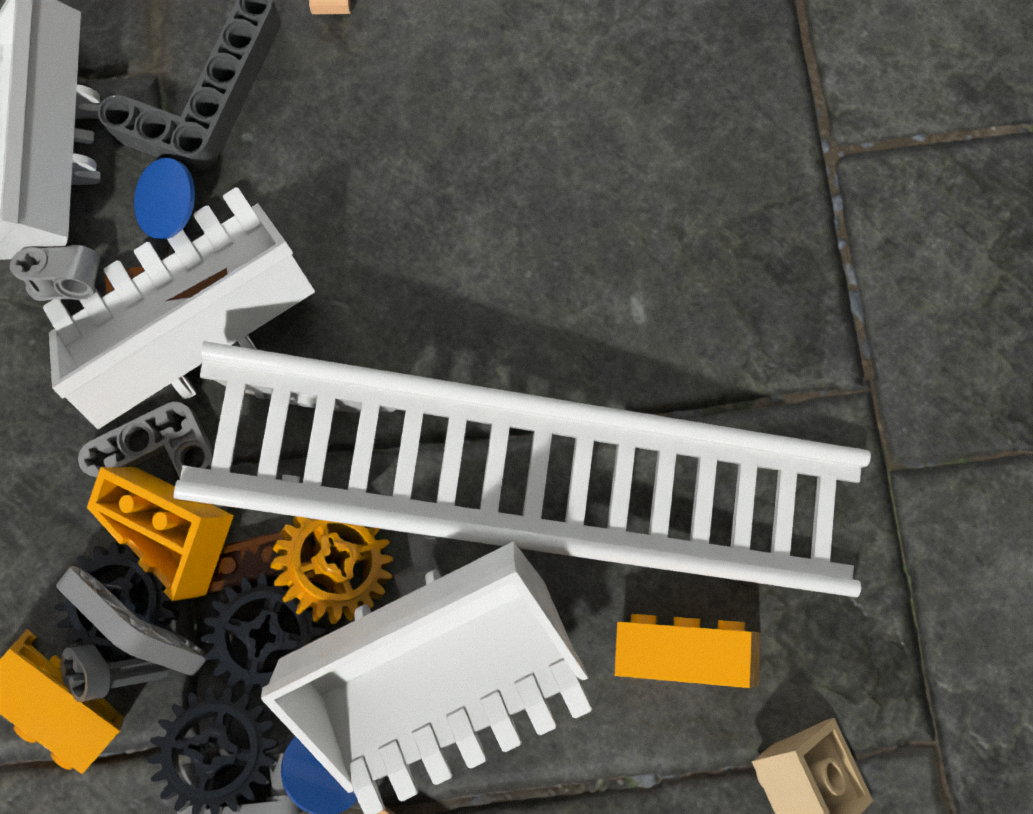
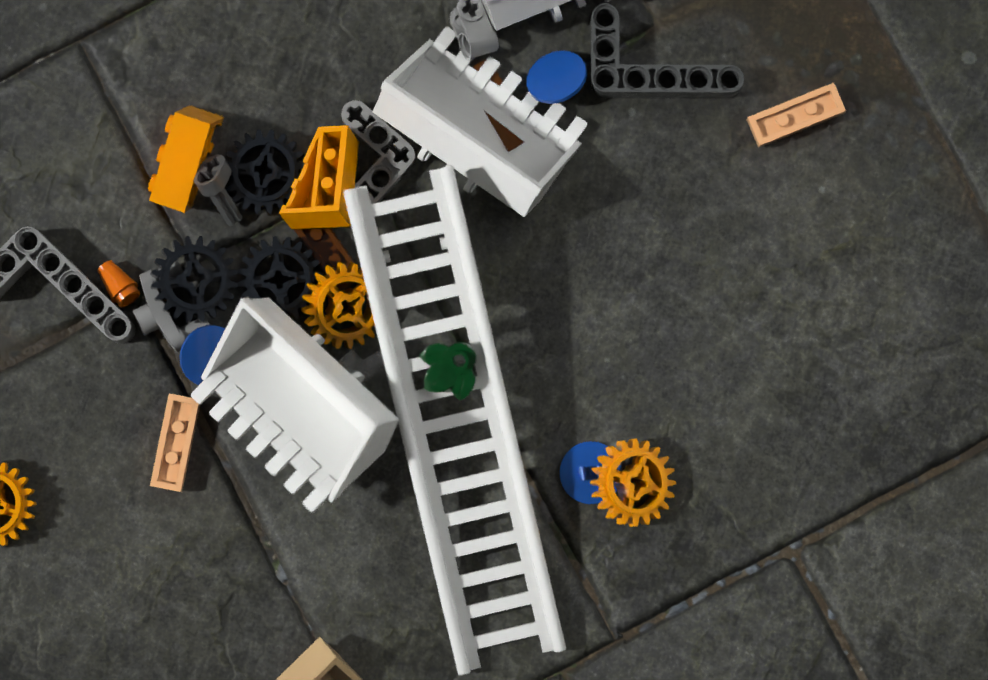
camera: 75 degrees right, 5 degrees up
(125, 629) = (248, 199): light grey beam -> none
(472, 459) = (446, 372): none -> dark green plate
(657, 342) = (577, 471): none -> blue piece
(688, 652) = (376, 570): light orange wedge -> none
(700, 293) = (627, 491): none -> light orange gear

